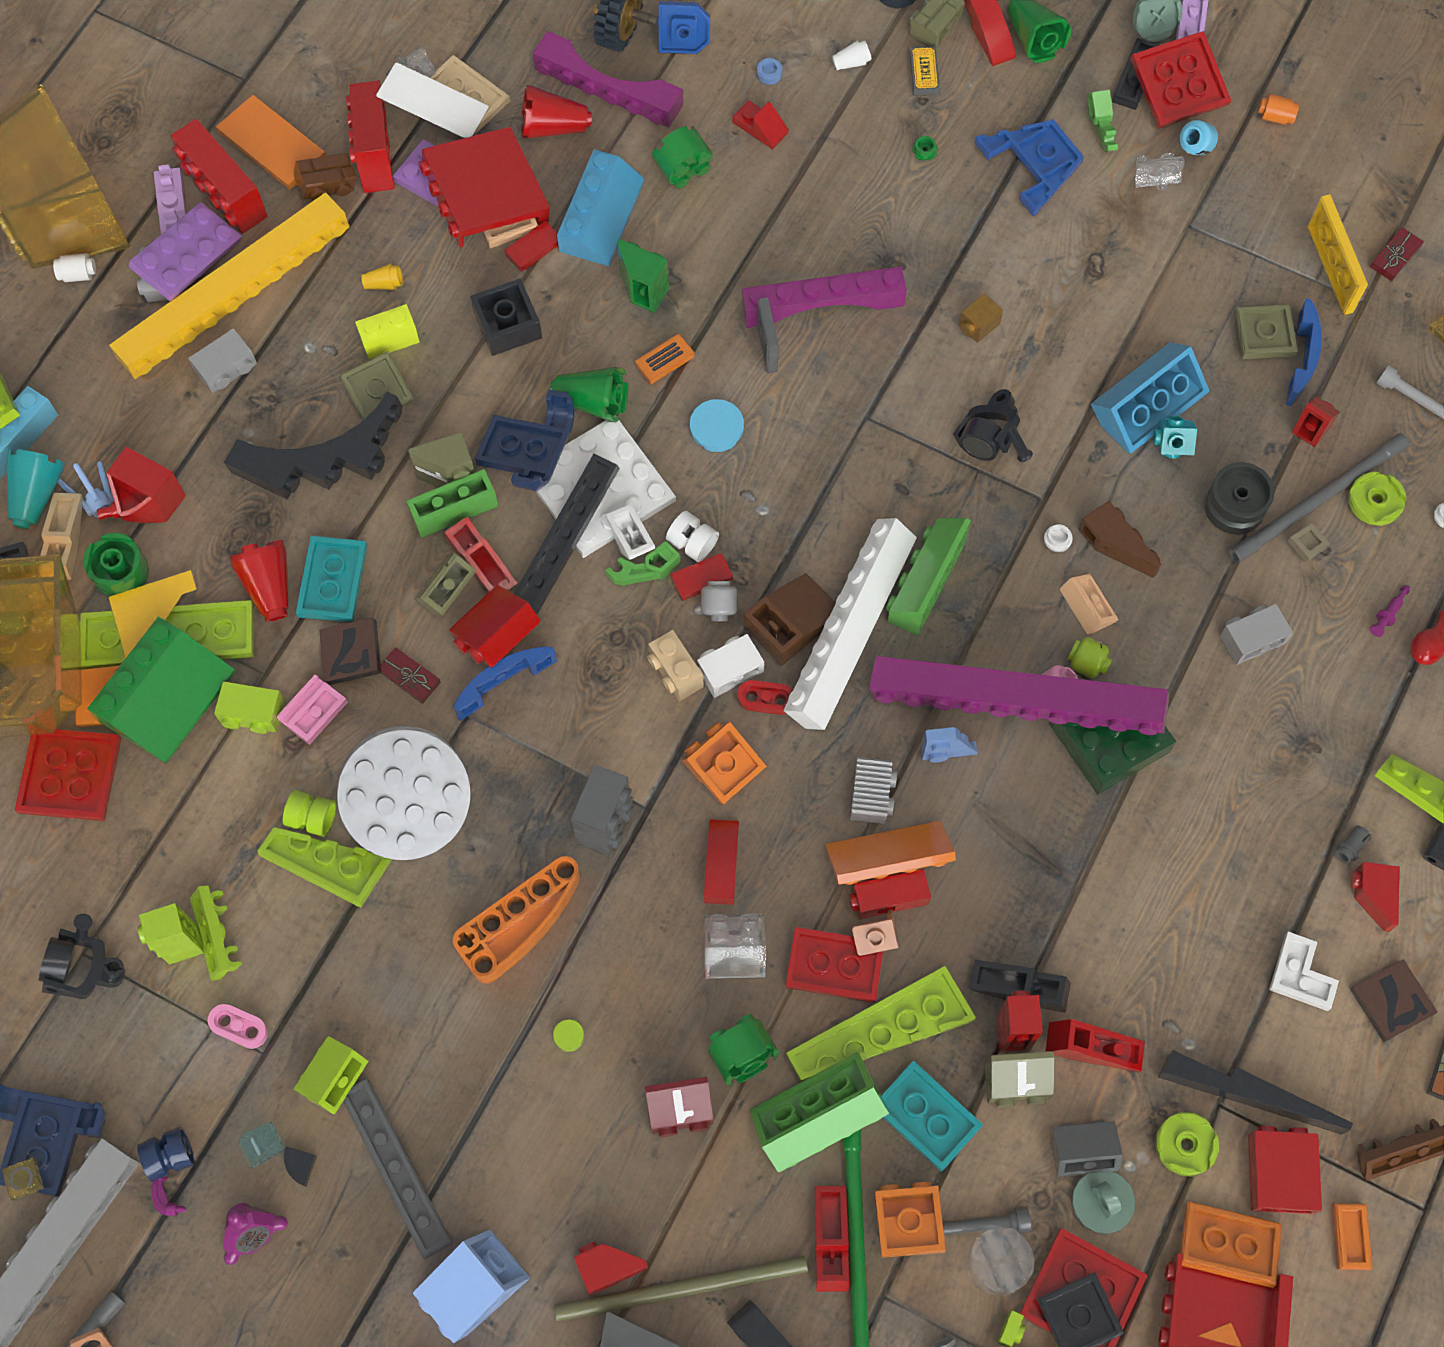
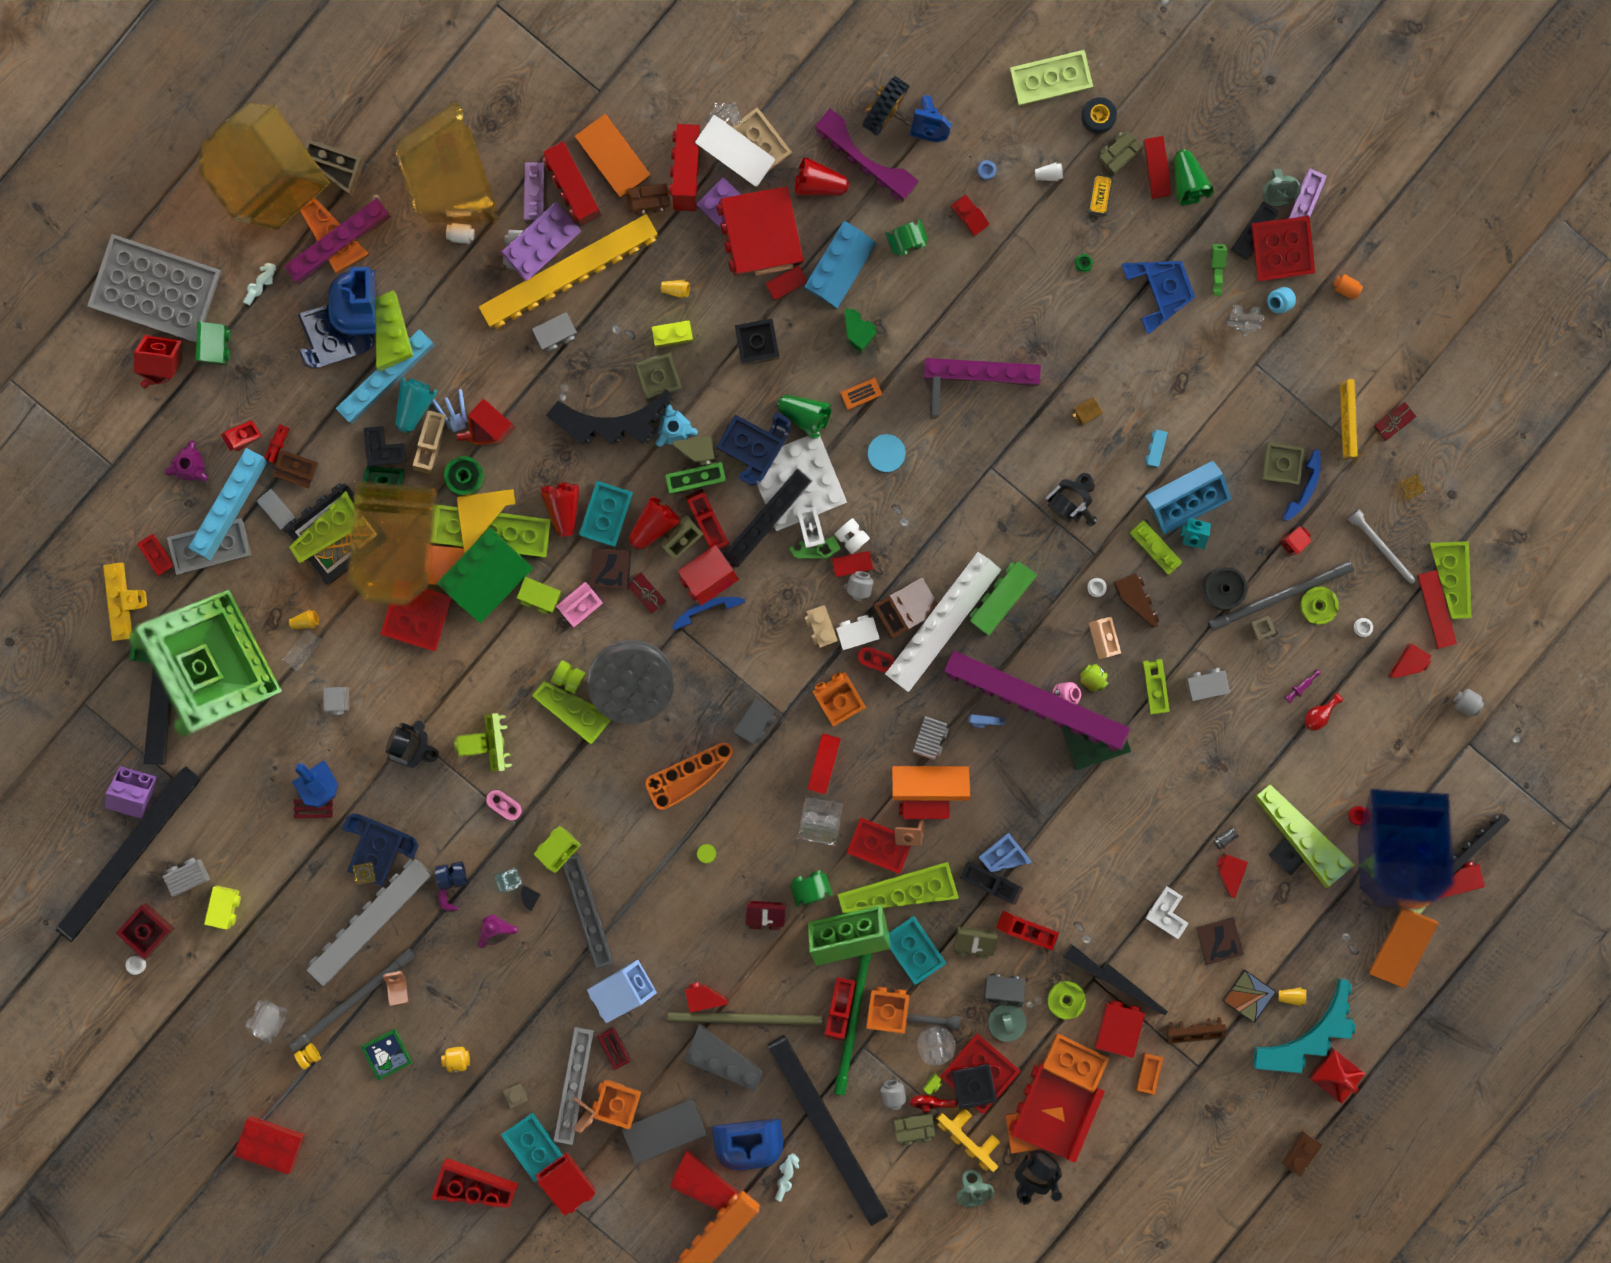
camera: 15 degrees right, 20 degrees up
(399, 443) = (673, 427): none -> medium azure rock
(400, 575) = (653, 523): none -> red cone
(1019, 1022) = (982, 911): red brick -> none
(1029, 938) = (1004, 855): none -> medium blue wing
(1087, 347) = (1156, 448): none -> medium azure piece
(1125, 471) = (1155, 547): none -> lime plate
(1183, 653) = (1156, 687): none -> lime plate

